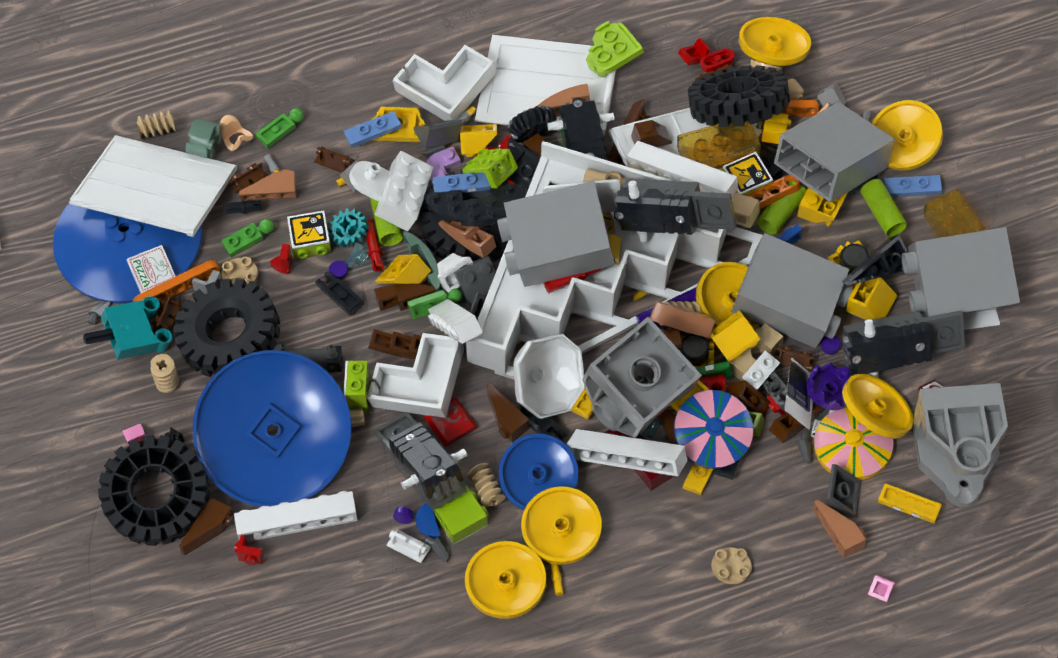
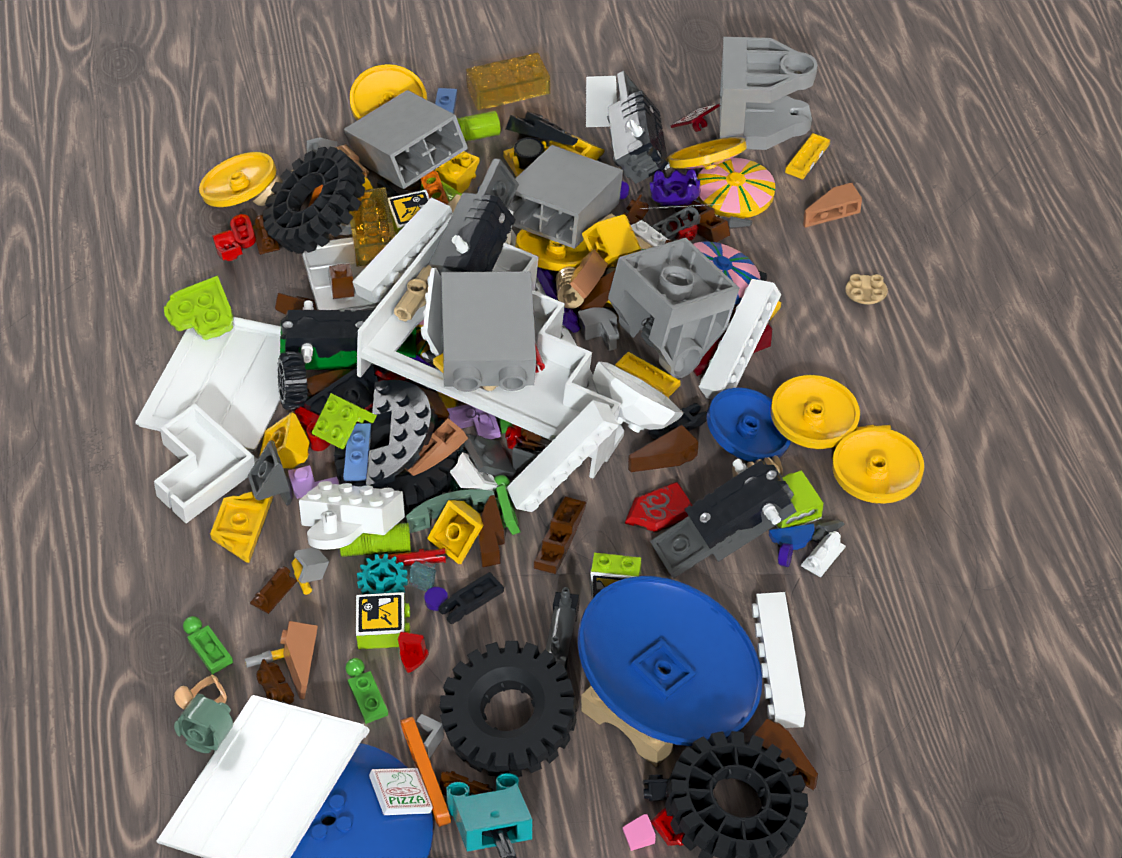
camera: 85 degrees left, 10 degrees down
(154, 124) = (159, 784): tan piece -> none
(164, 373) = (564, 783): tan piece -> none
(240, 268) = (418, 700): tan dish -> none
(242, 207) = (318, 690): black axle -> none
(248, 554) = (820, 718): red bracket -> none
(372, 129) = (245, 541): medium blue plate -> none
(426, 386) = (619, 502): white piece -> none
(565, 96) = (262, 358): nougat slope -> none
(843, 491) = (789, 202): dark grey slope -> none
(881, 588) = (895, 188): bright pink slope -> none
(962, 273) = (572, 71): light grey brick -> none

